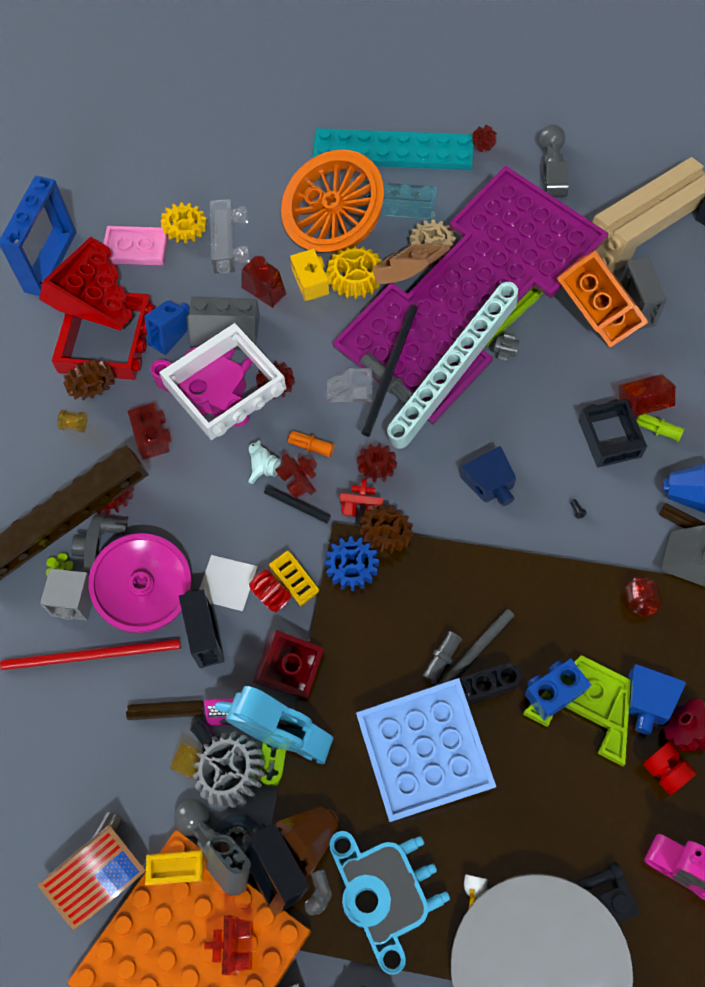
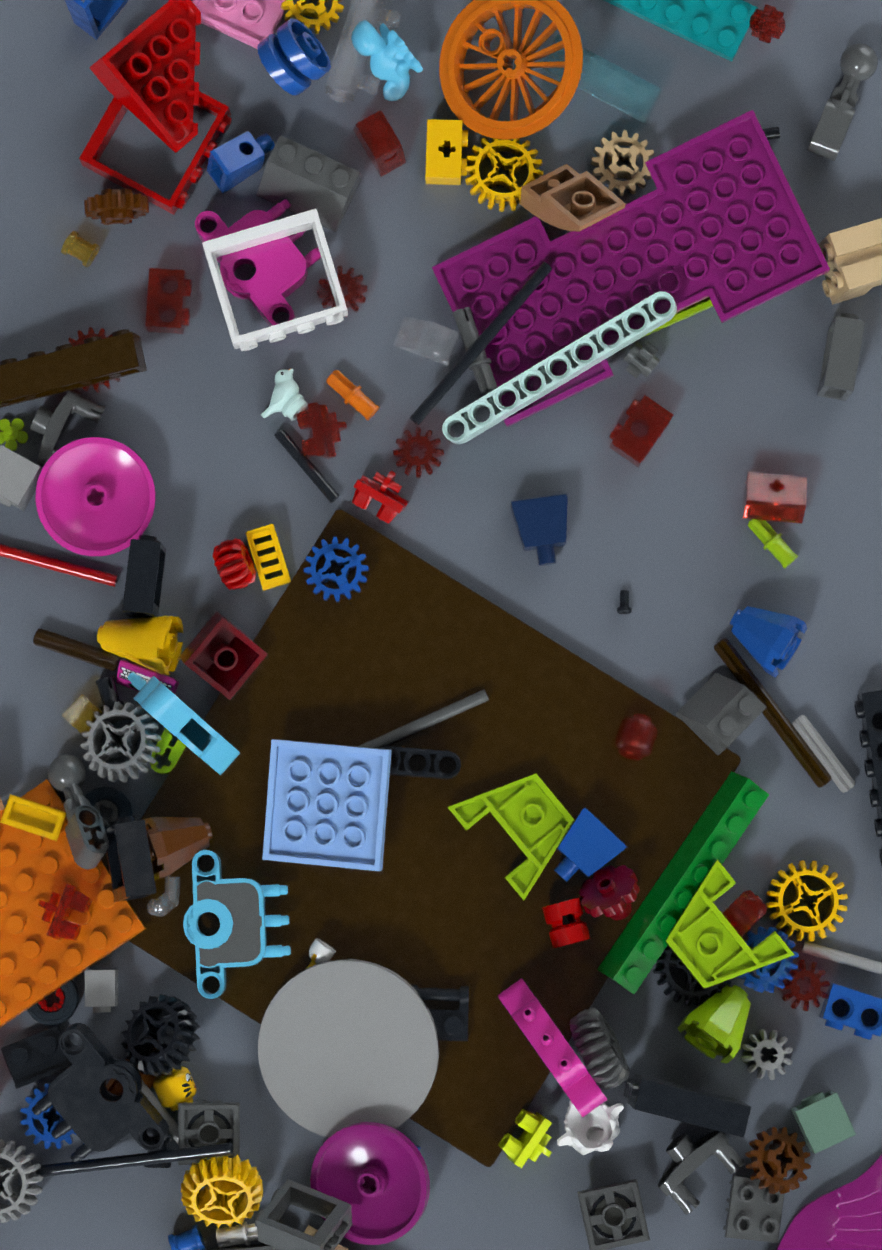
camera: 20 degrees right, 20 degrees up
(183, 248) = (294, 57): none -> blue wheel
(217, 678) = (144, 641): none -> yellow cone
(227, 582) = (192, 528): white sticker -> none
(248, 228) = (389, 57): none -> medium azure animal
(386, 528) = (397, 534): reddish brown gear -> none
(442, 657) = (389, 715): dark grey pin -> none
(528, 402) = (634, 447): none -> clear red brick
(560, 693) = (490, 807): blue brick -> none
(602, 298) = (777, 353): orange slope -> none
(616, 453) = (707, 556): black window -> none

